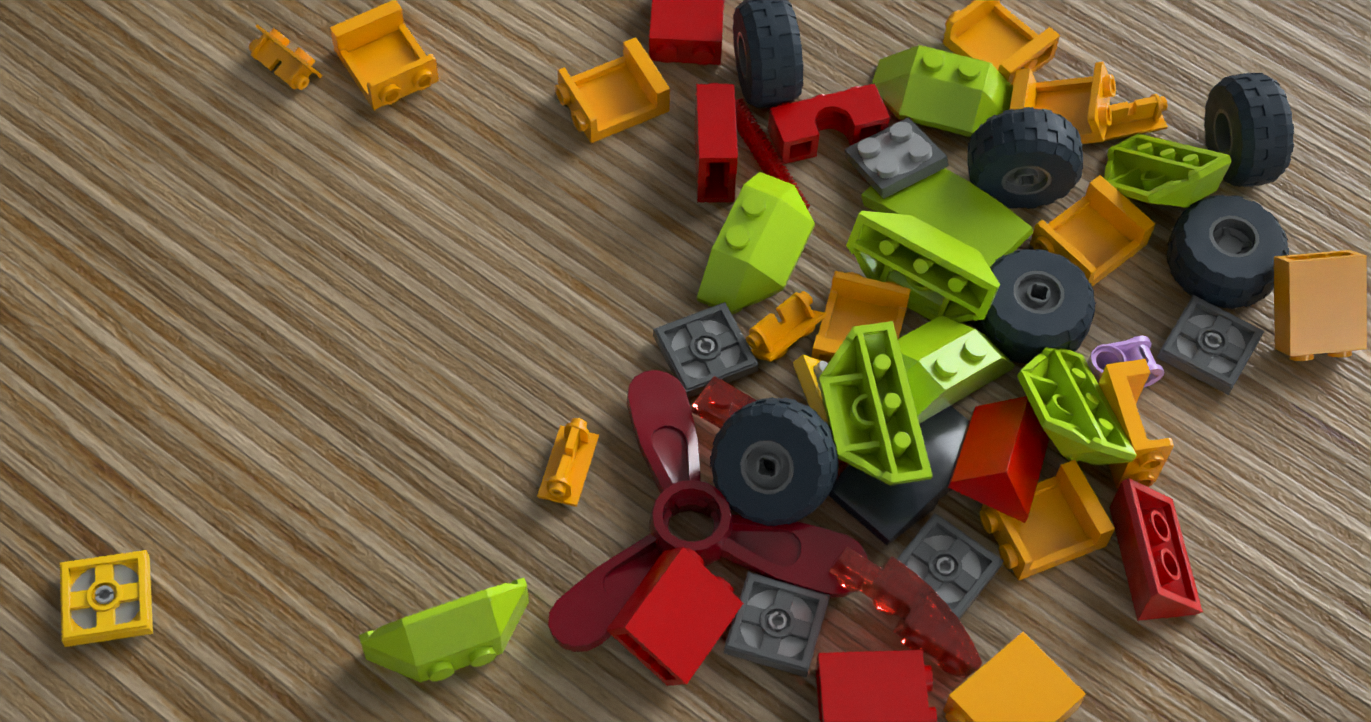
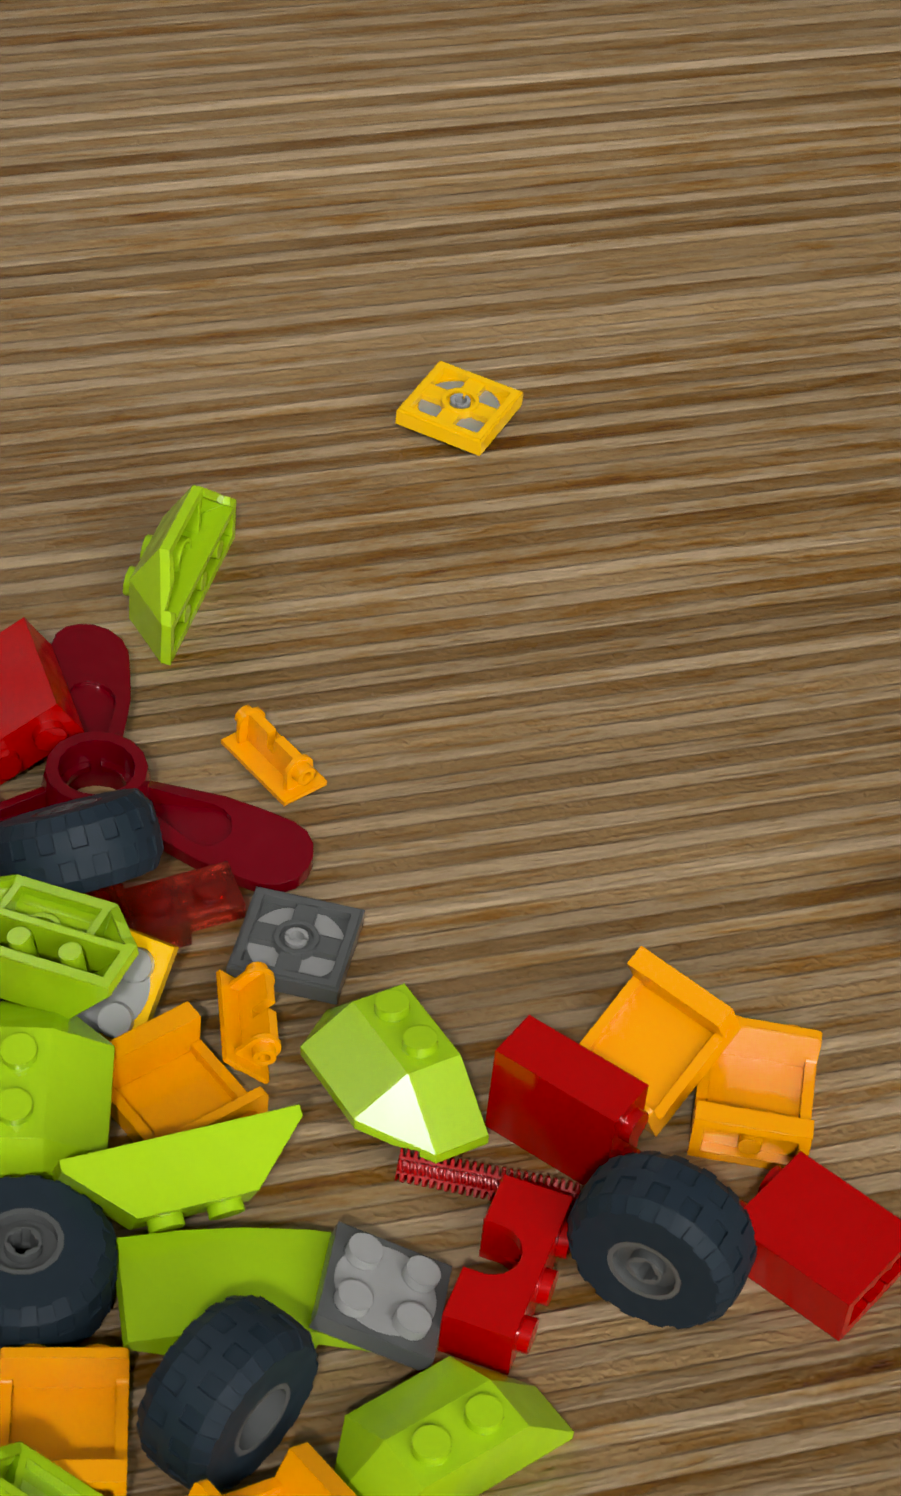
camera: 125 degrees right, 15 degrees down
(635, 139) = (662, 1034): none -> light orange panel

